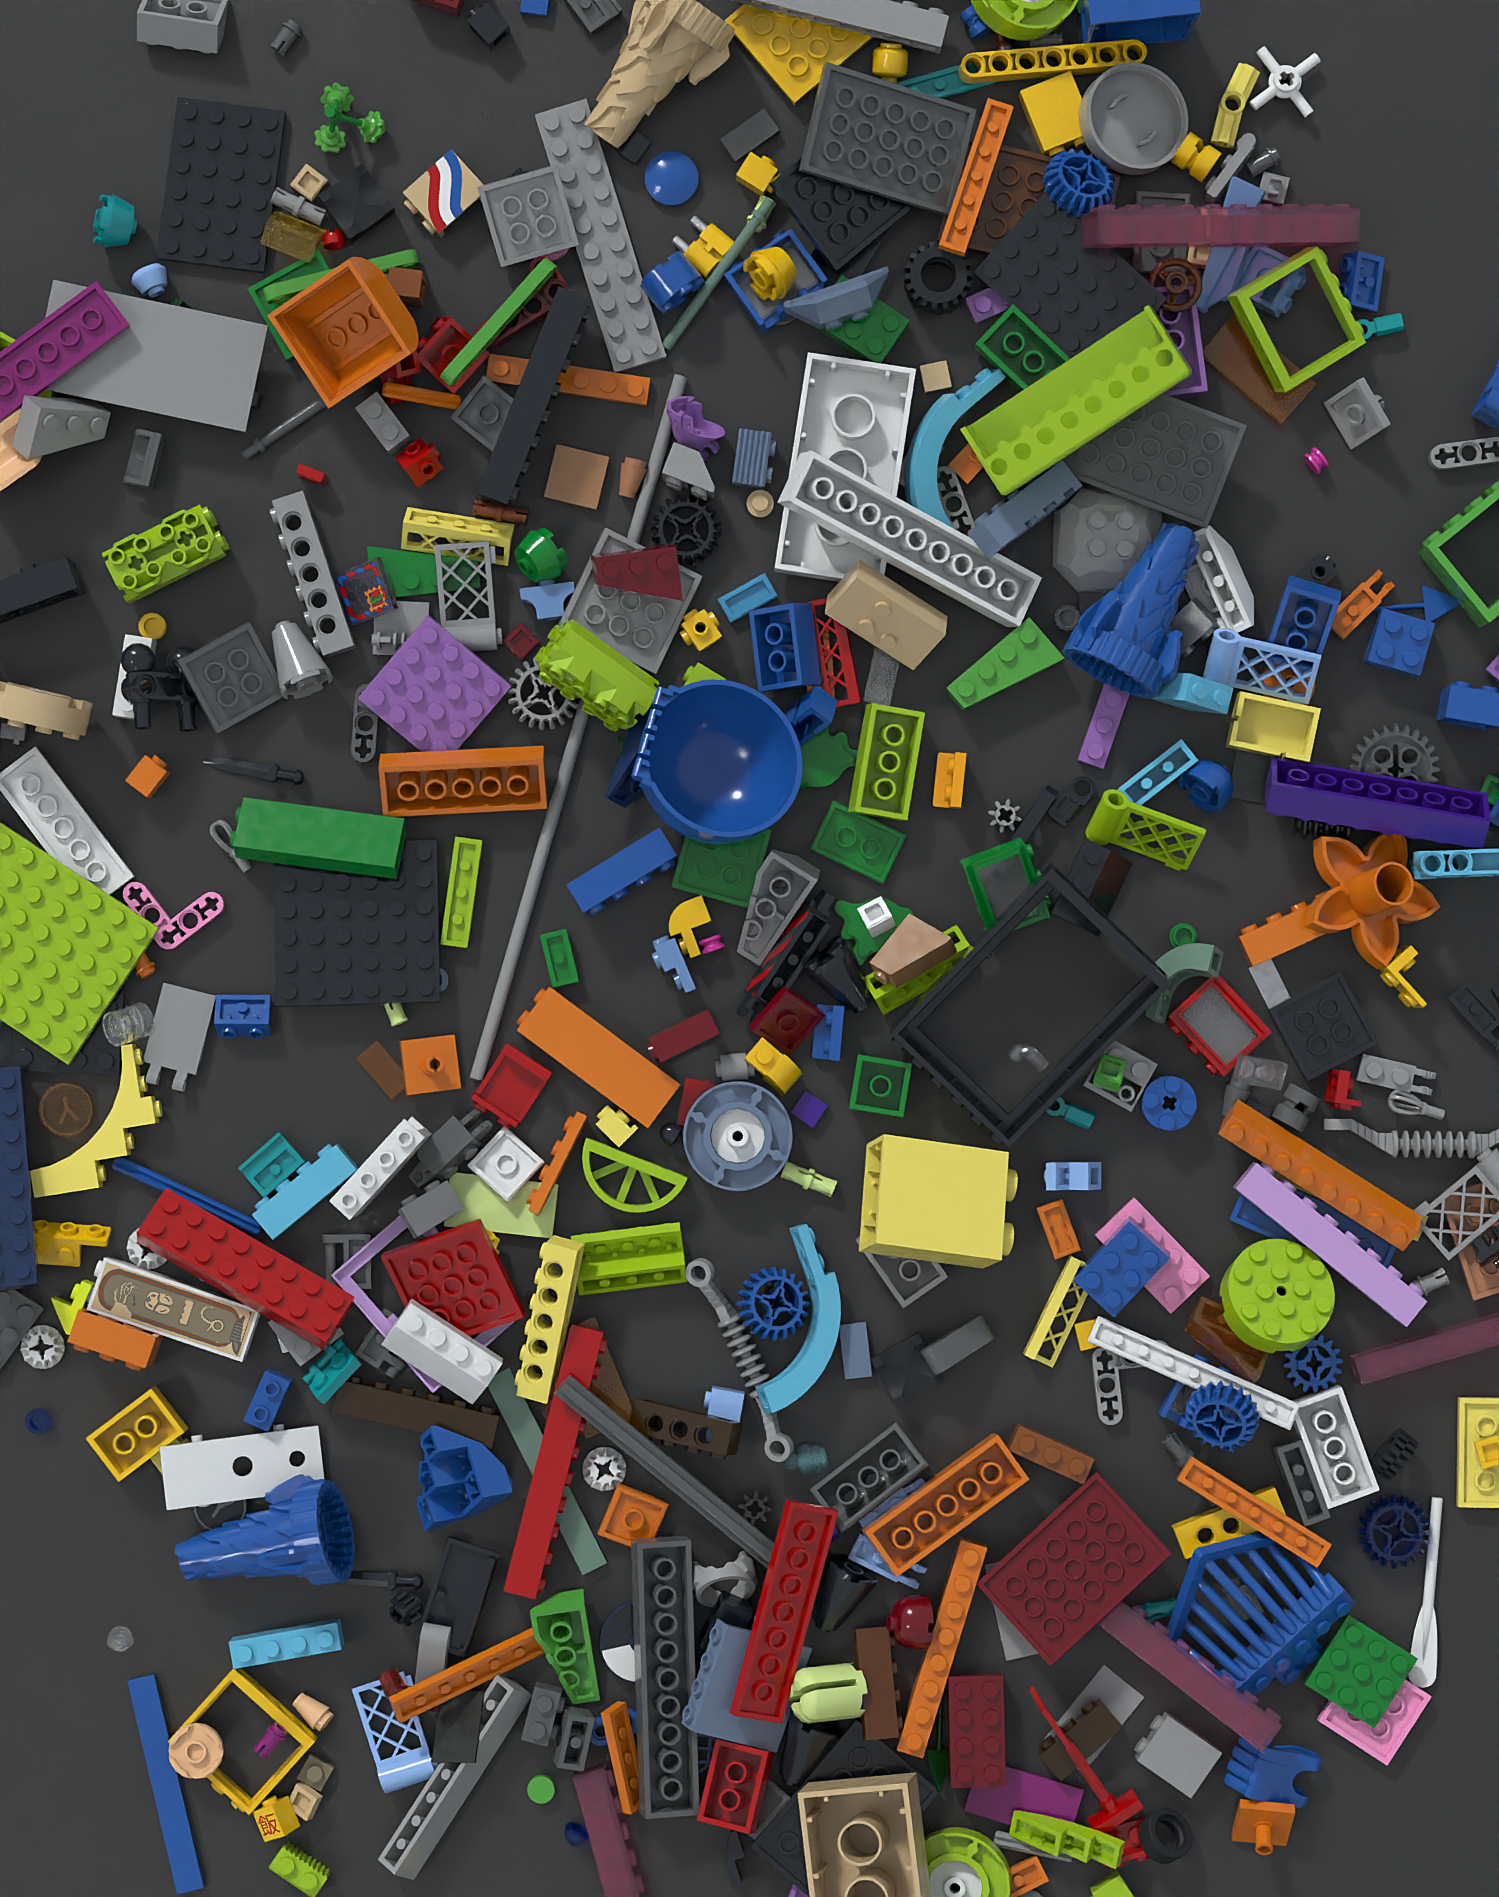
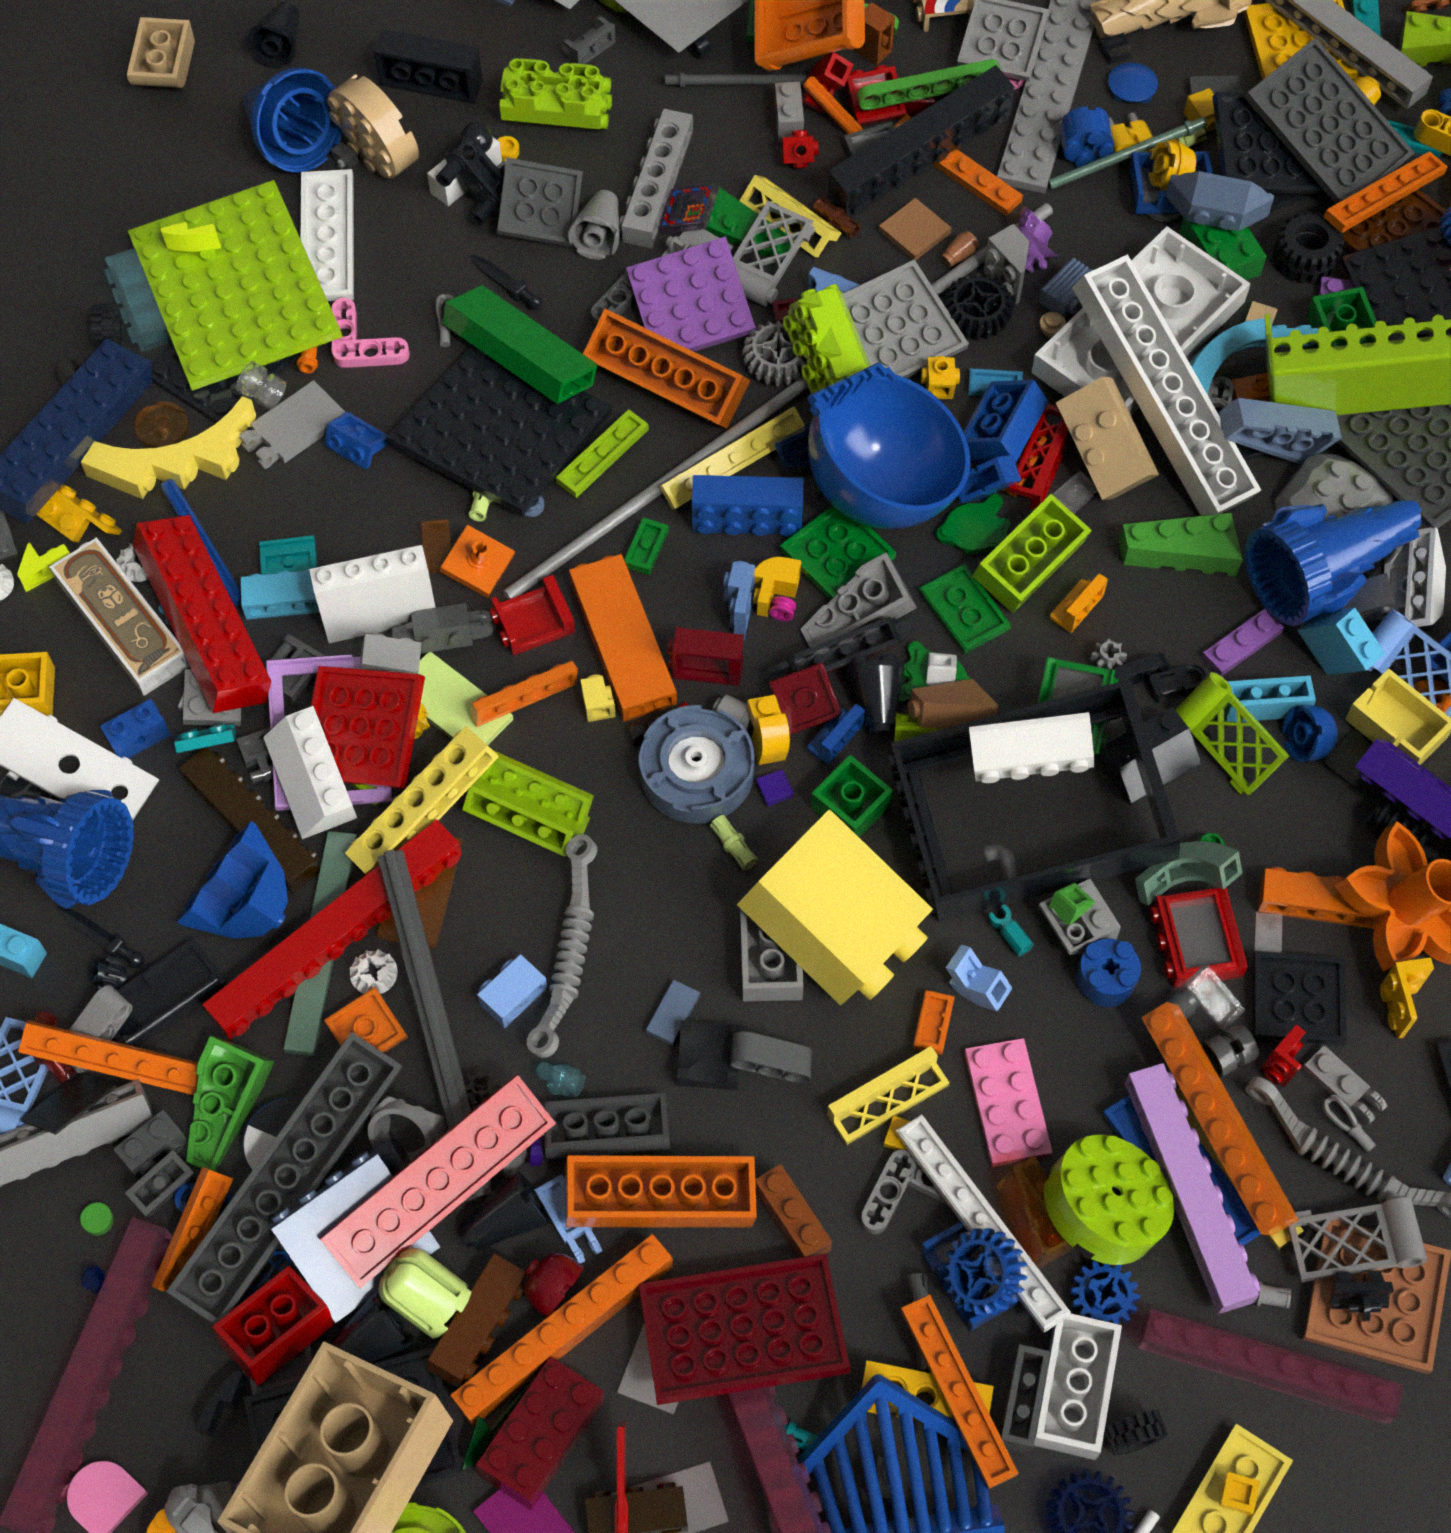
camera: 35 degrees right, 25 degrees down
(114, 1339) = (52, 602): orange brick -> none
(148, 775) = (421, 233): orange brick -> none
(311, 474) = (707, 115): red tile -> none
(506, 1164) = (479, 671): white tile -> none
(539, 556) = (846, 254): green cone -> none
(576, 825) = (733, 456): none -> light yellow plate
(635, 1163) = (616, 771): lime window -> none
(641, 571) = (920, 296): dark red wedge -> none
(724, 1431) = (473, 970): dark brown brick -> none
(781, 1283) = (636, 939): blue gear -> none
(822, 1329) = (608, 991): medium azure arch -> none
(1012, 984) = (1032, 747): none -> white slope
(1121, 1266) = (973, 1081): blue brick -> none

